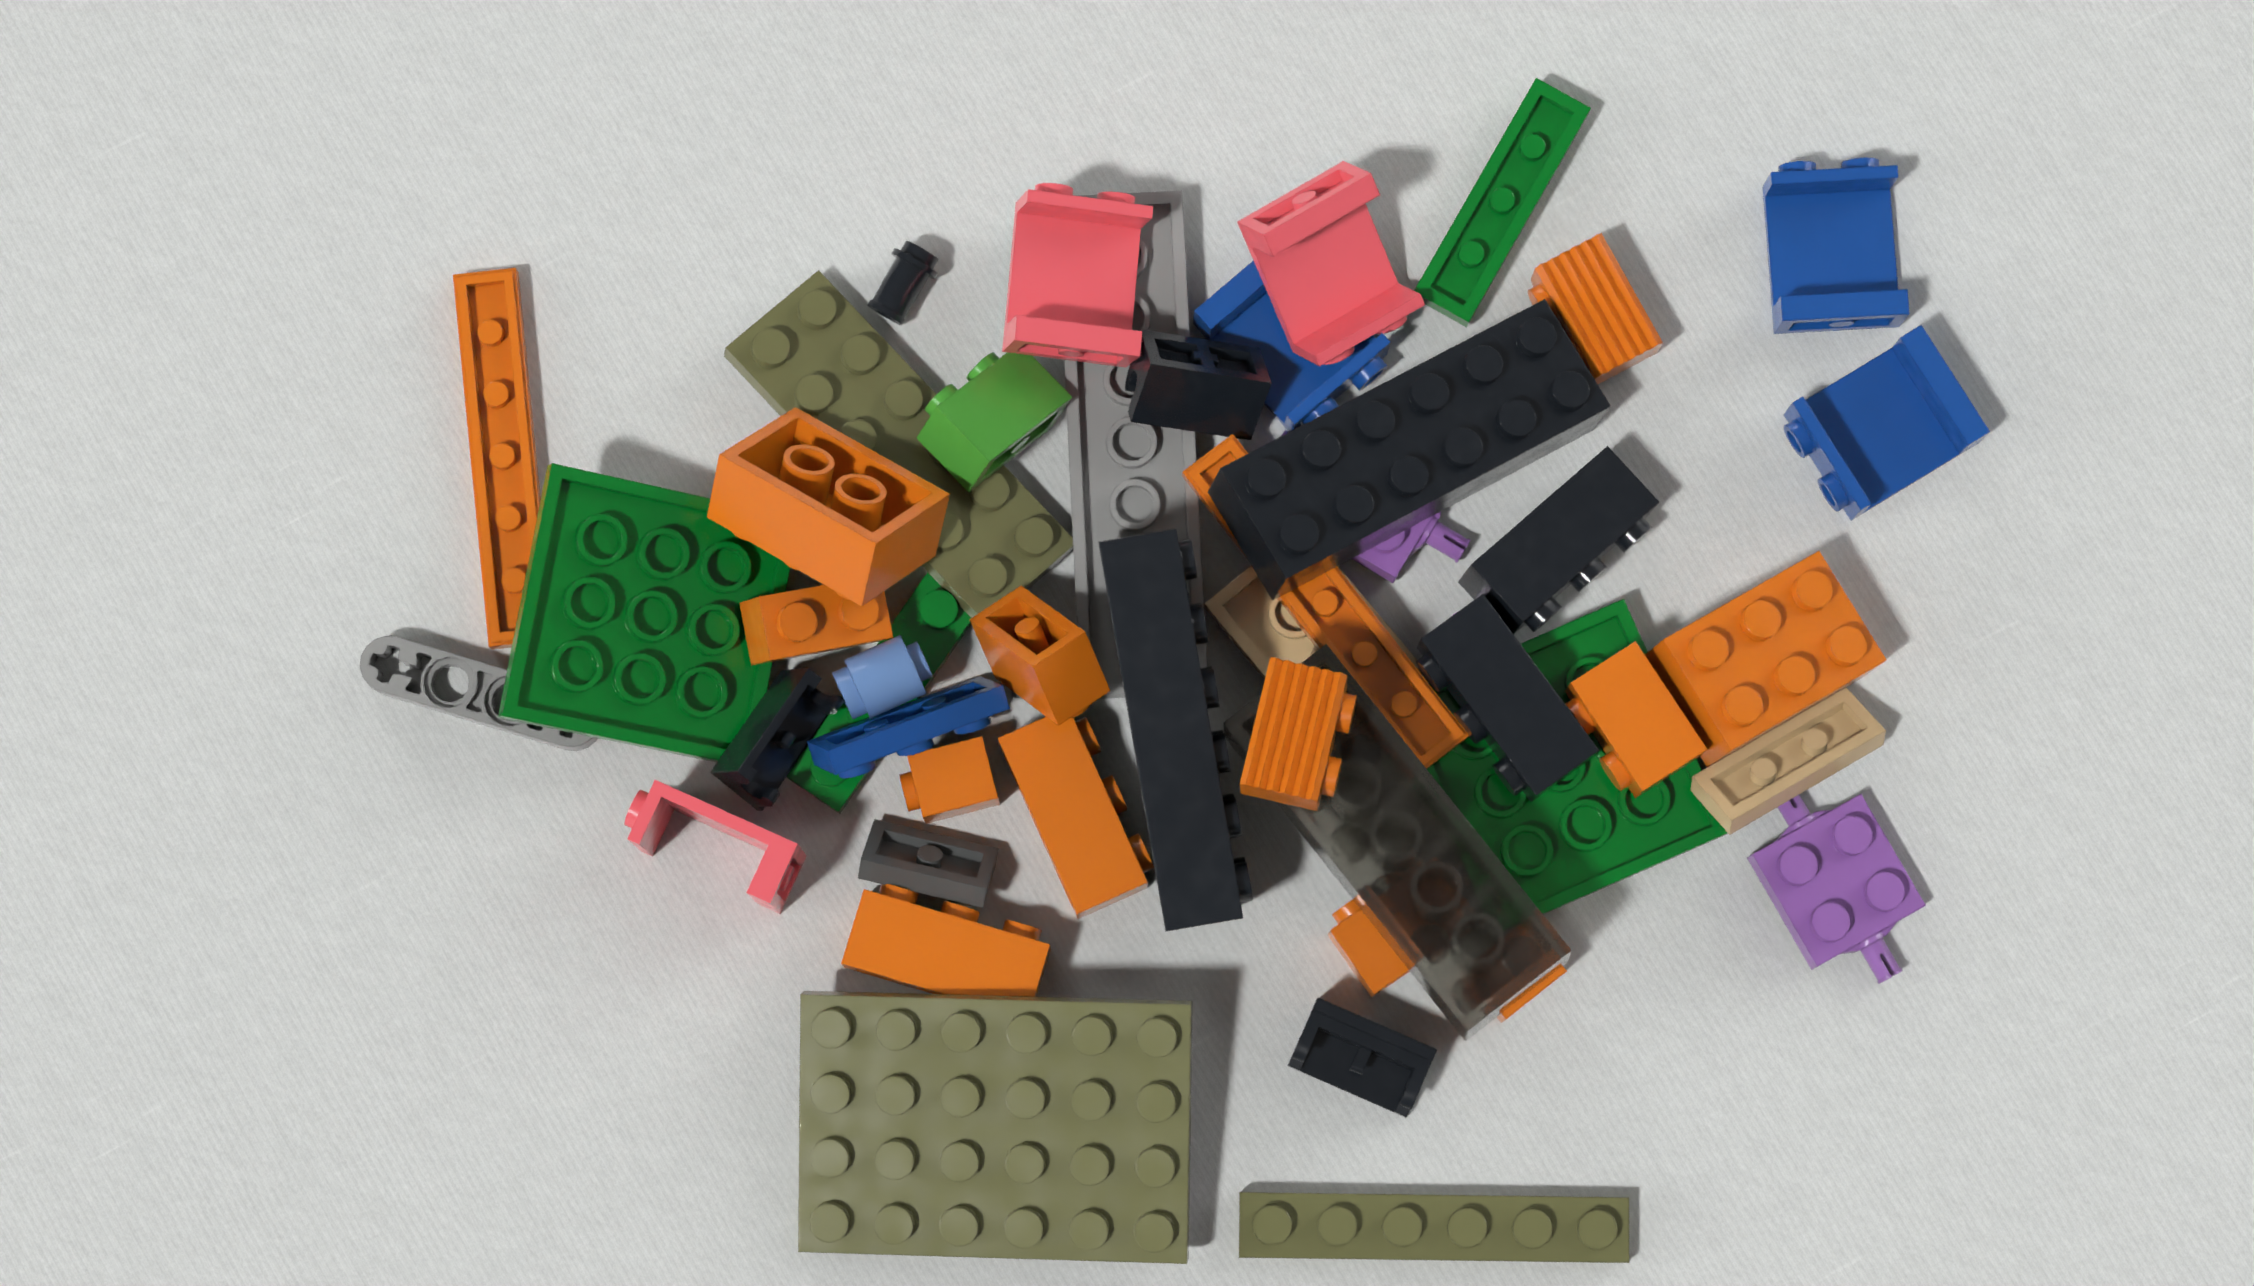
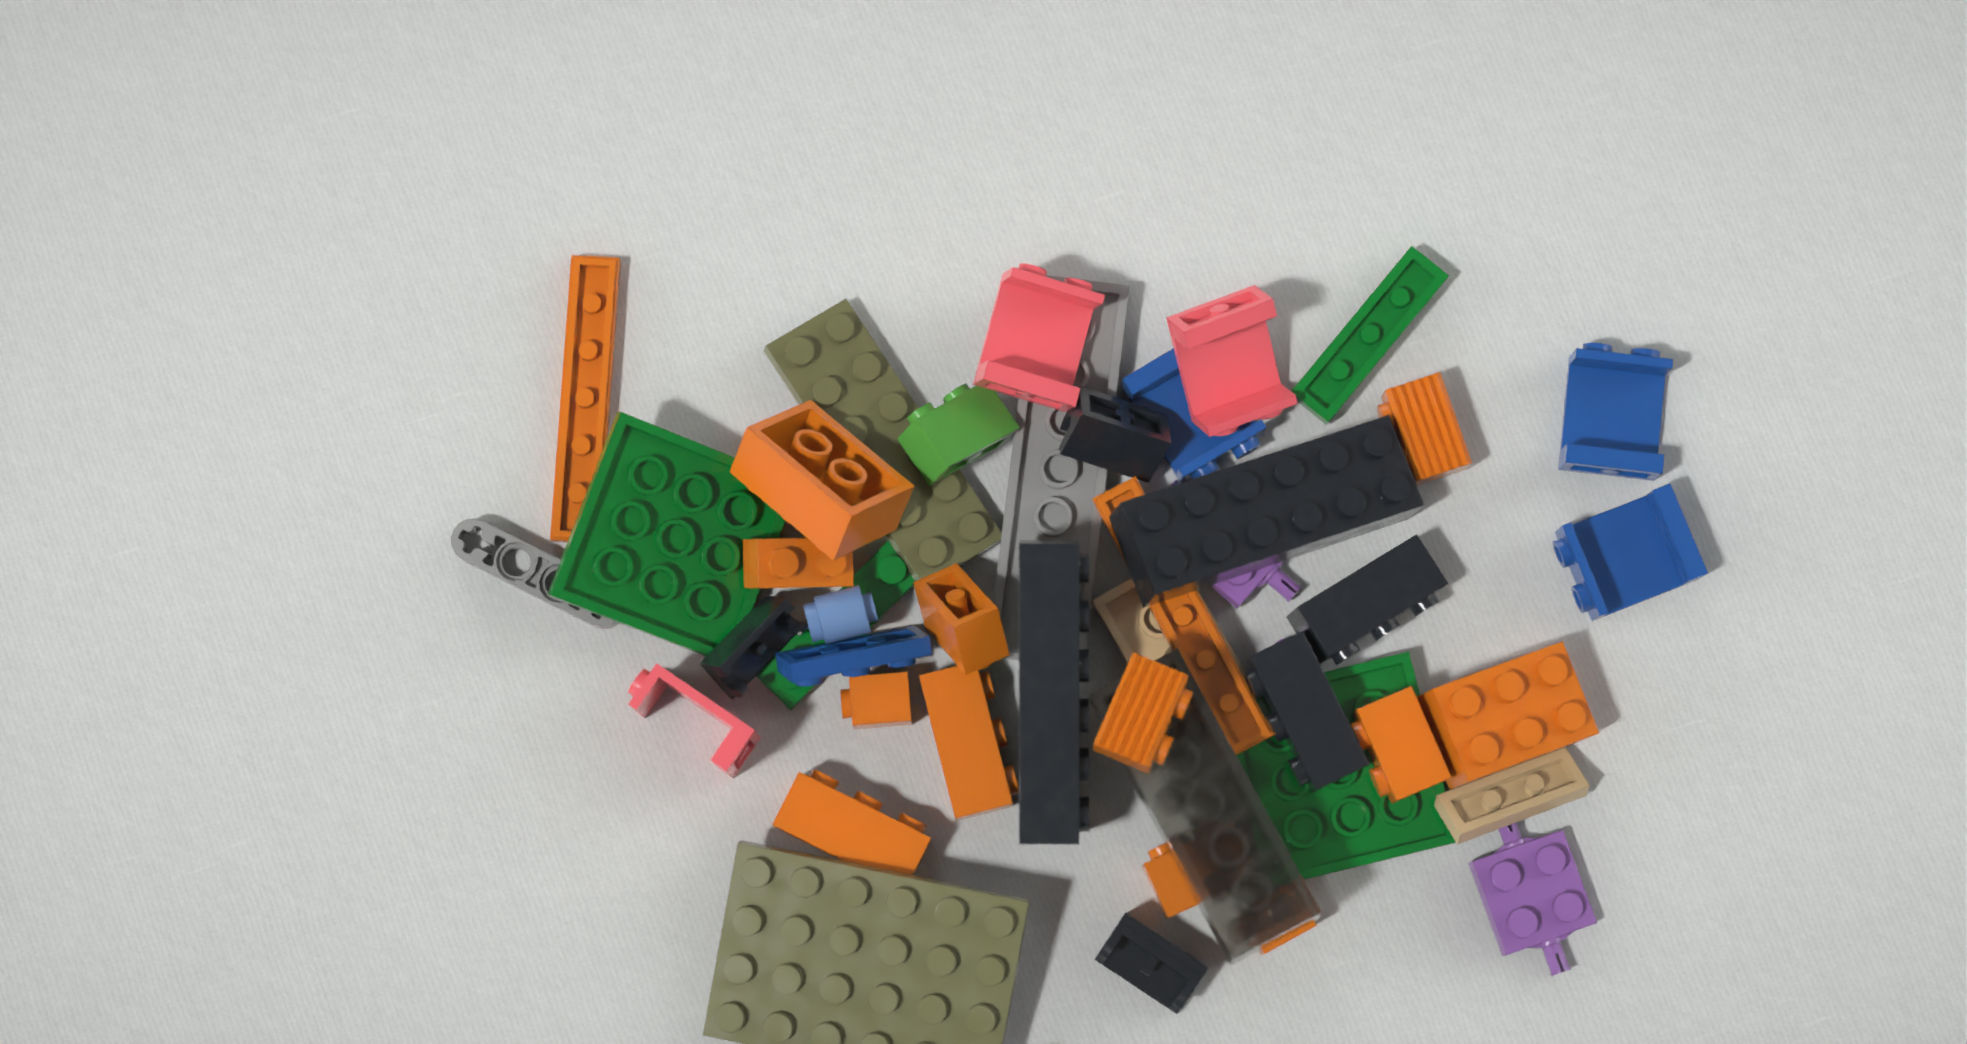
camera: 10 degrees right, 0 degrees up
(903, 282) = (908, 318): black pin -> none
(928, 863) = (850, 760): dark grey plate -> none

